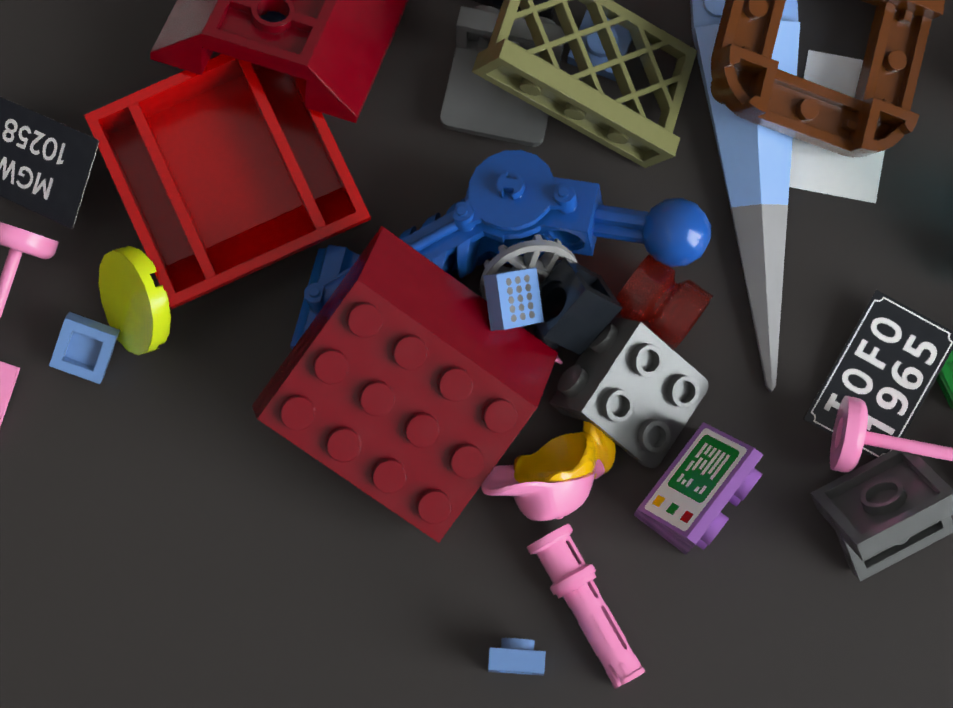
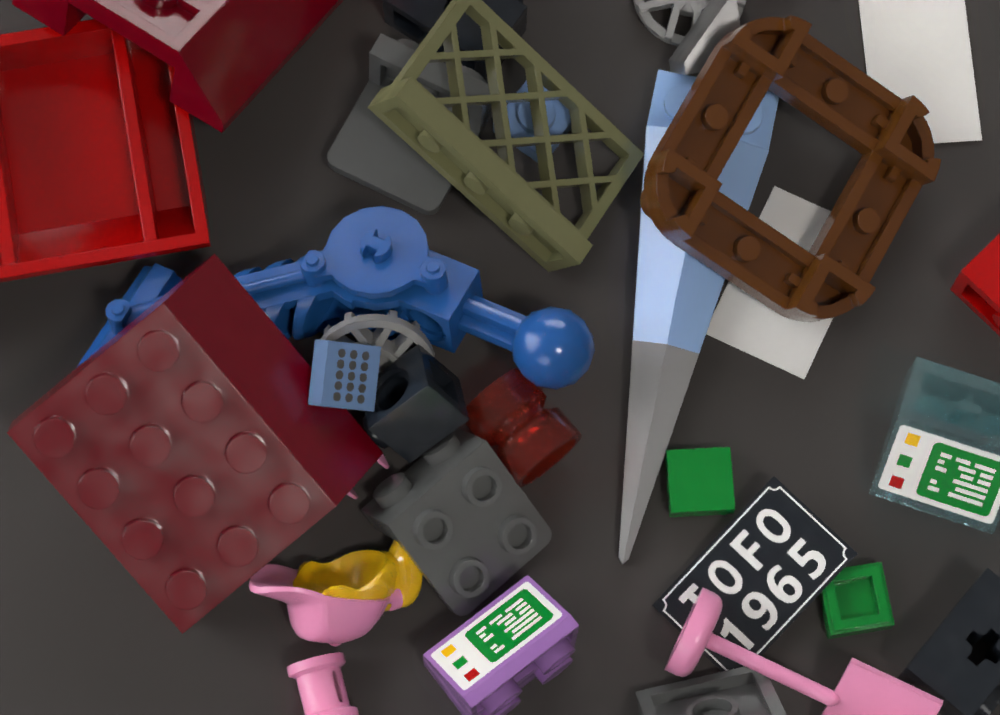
camera: 10 degrees right, 5 degrees down
(816, 309) = (700, 482): none -> green tile

